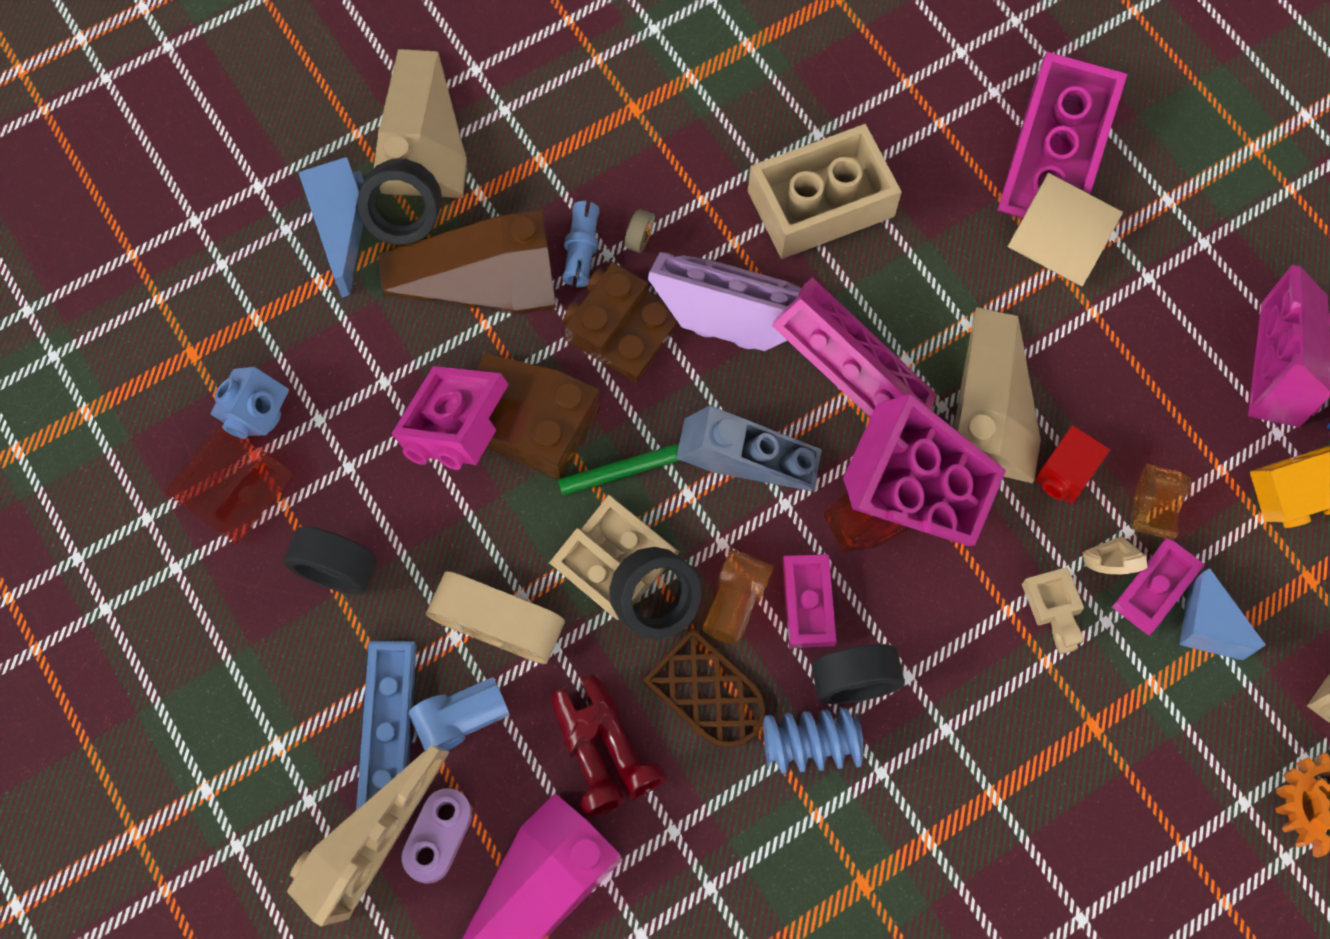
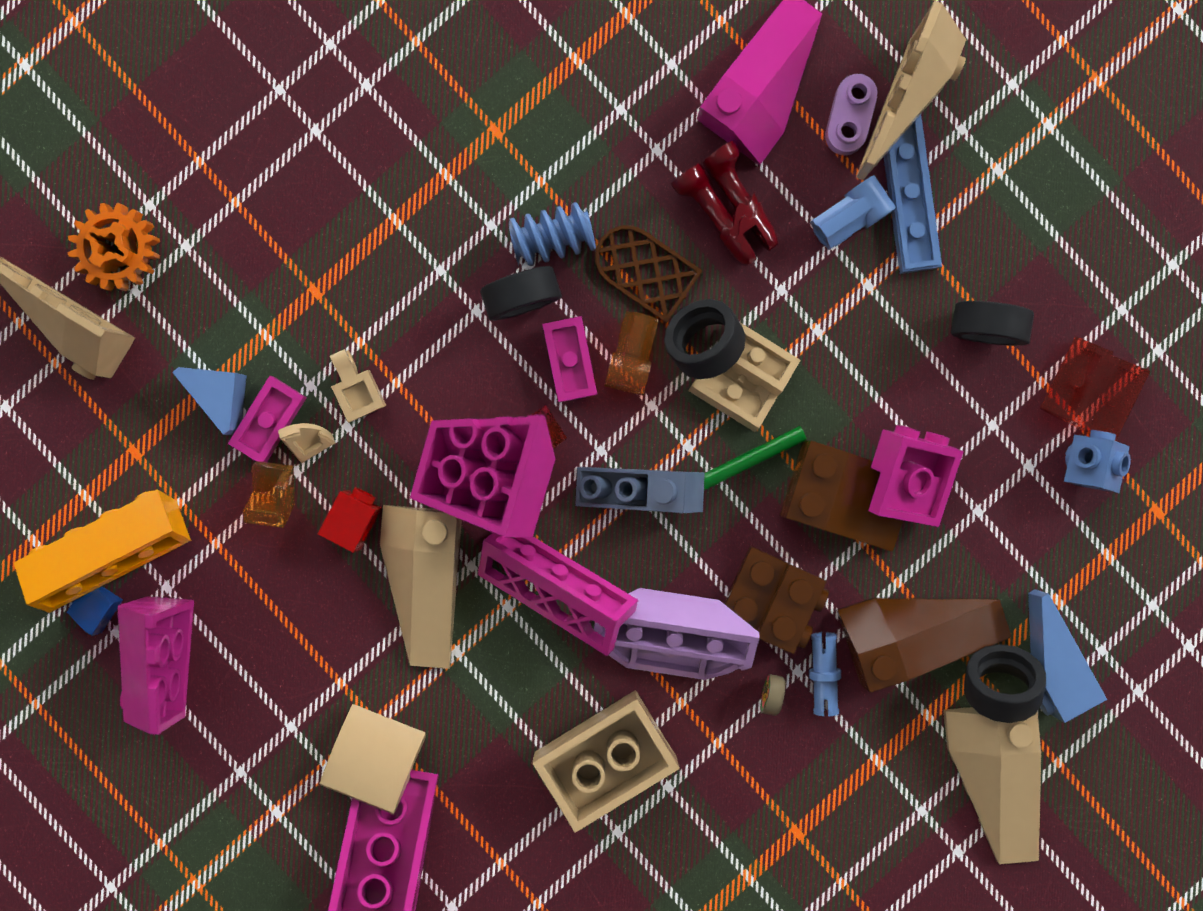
camera: 170 degrees right, 20 degrees up
(495, 617) = (838, 301): tan beam -> none

